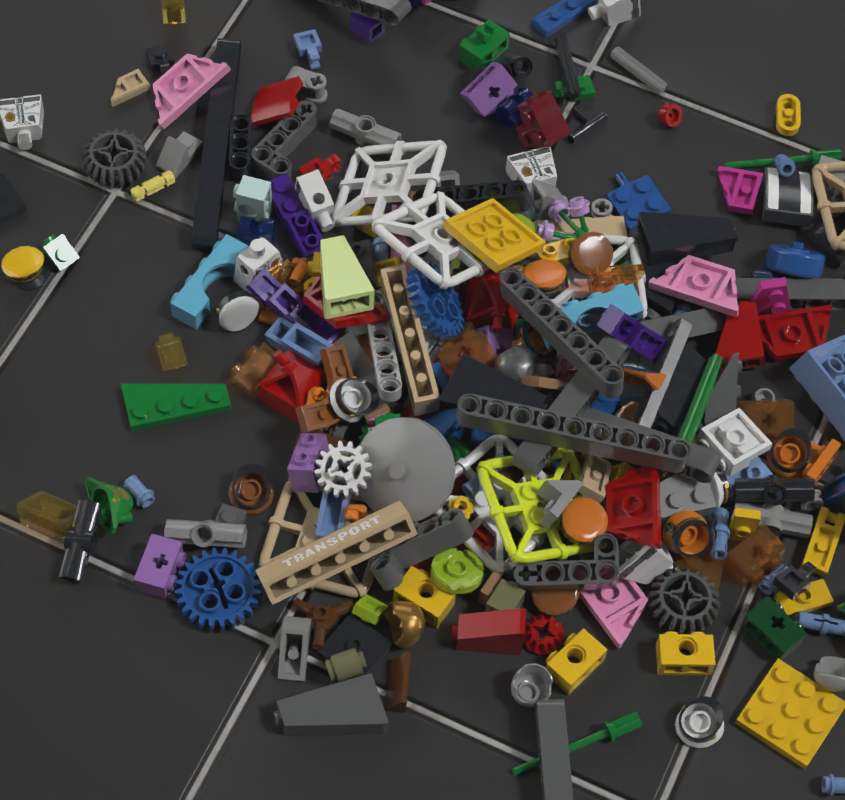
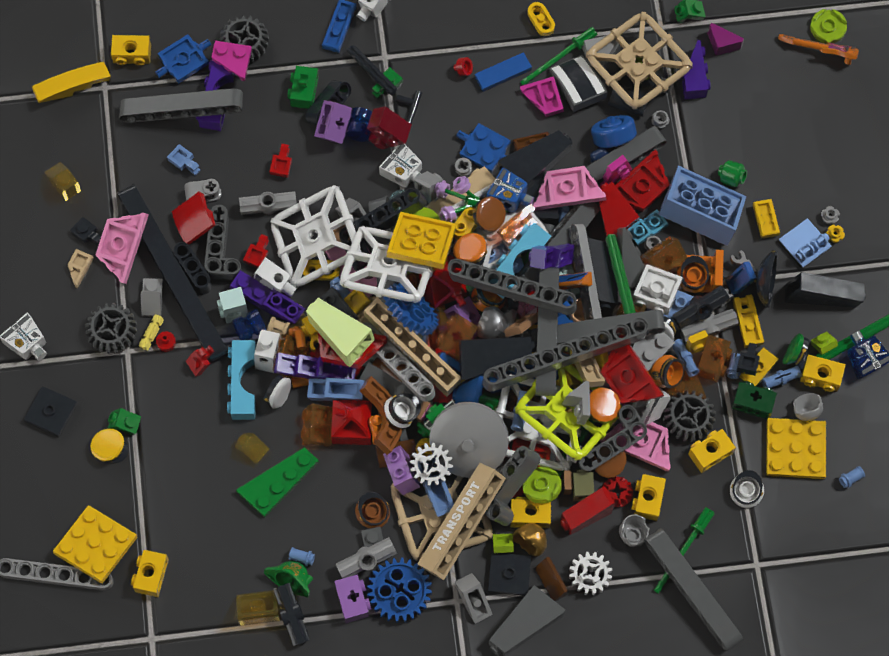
camera: 30 degrees left, 10 degrees up
(161, 202) = (165, 341): none -> red tile
(178, 236) = (198, 360): none -> red plate
(286, 250) = (278, 326): none -> tan bush
(322, 618) = (477, 566): reddish brown piece -> none
(346, 665) = (514, 589): olive brick -> none
(355, 512) = (454, 486): orange arm -> none
(408, 103) = (281, 163): none -> red plate
(436, 702) = (584, 578): none -> white gear
(463, 501) = (516, 438): yellow plate -> none
(631, 245) = (510, 190): none -> blue torso
(638, 70) = (419, 42): light grey axle -> none
(710, 143) = (503, 71): none -> blue tile
(776, 379) = (648, 227): none -> medium azure slope
(784, 165) = (565, 63): medium blue pin -> none

